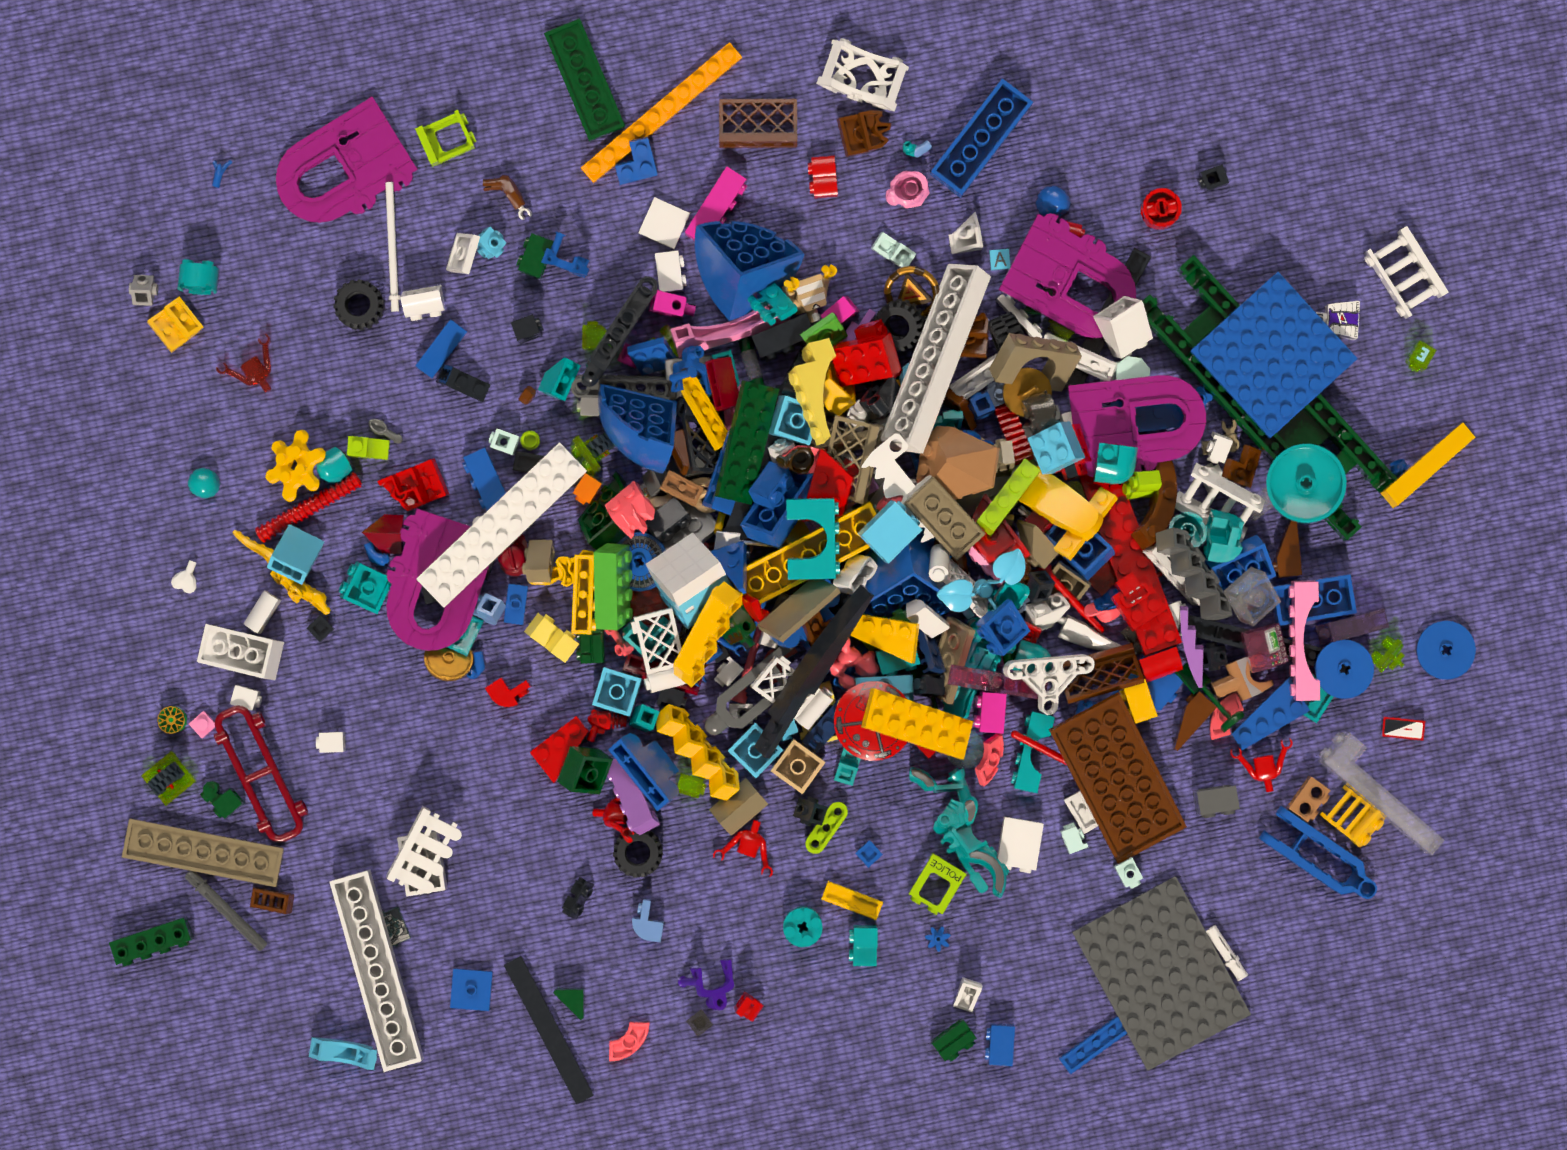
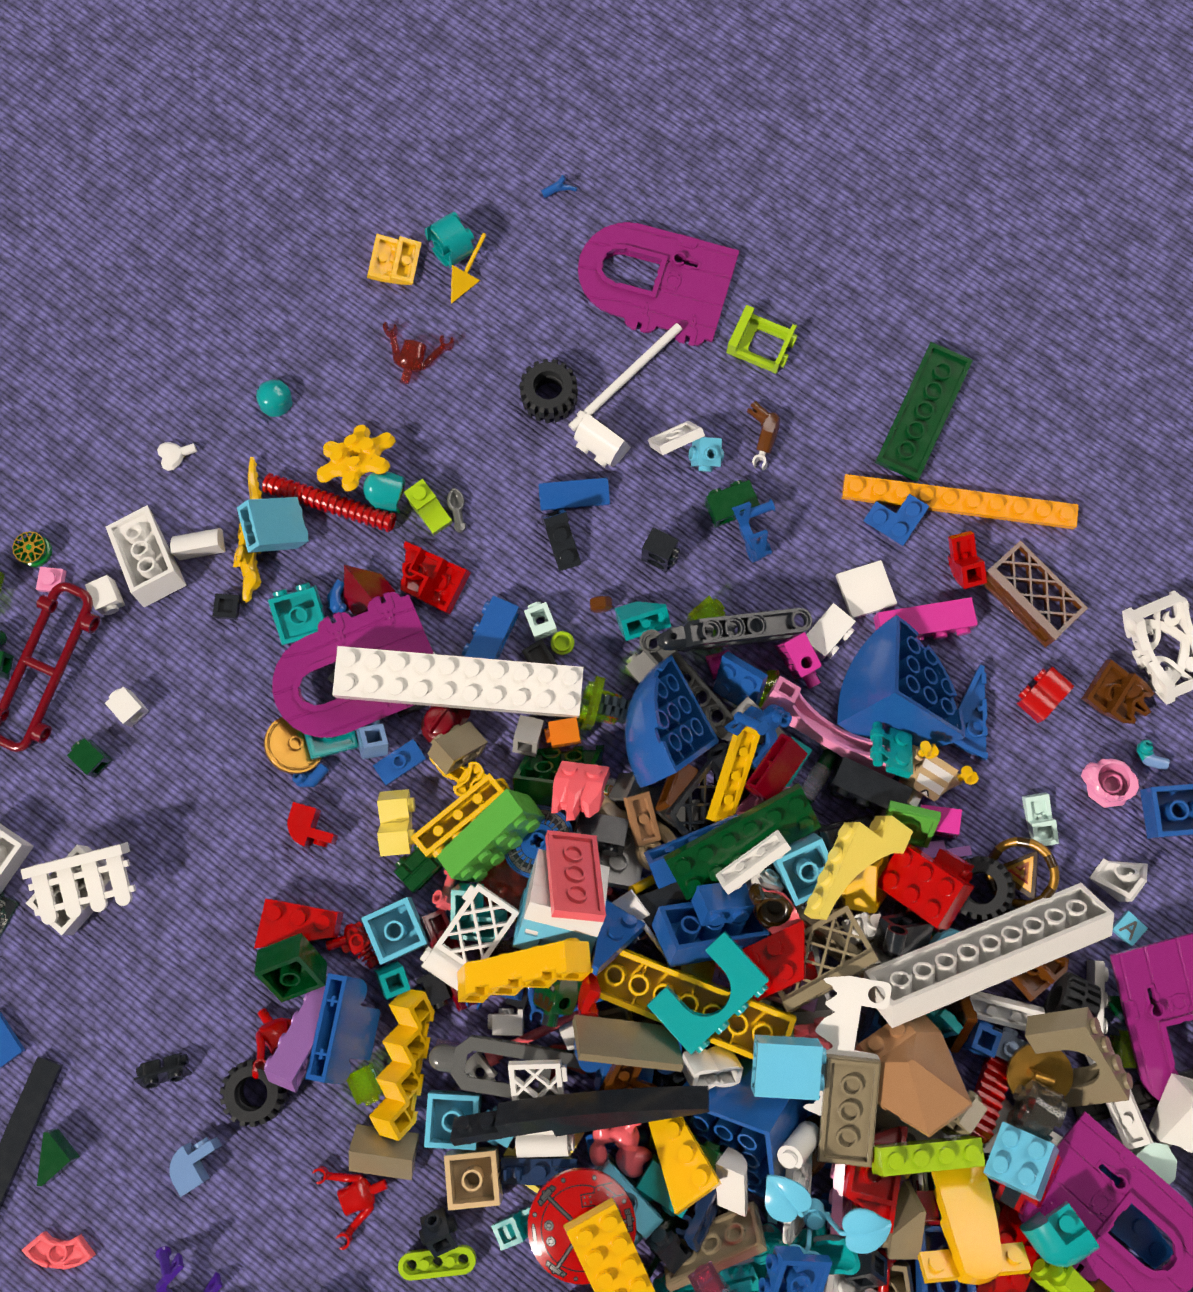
camera: 55 degrees right, 10 degrees down
(143, 290) = (399, 207): light grey brick -> none
(230, 292) = (461, 280): none -> yellow piece
(343, 790) = (89, 757): none -> dark green brick
(570, 512) = (528, 735): none -> light grey brick
(679, 556) = (574, 876): none -> coral plate
(701, 147) = (963, 560): none -> red brick
(763, 447) = (753, 862): none -> white plate
(798, 232) = (974, 716): none -> blue wing

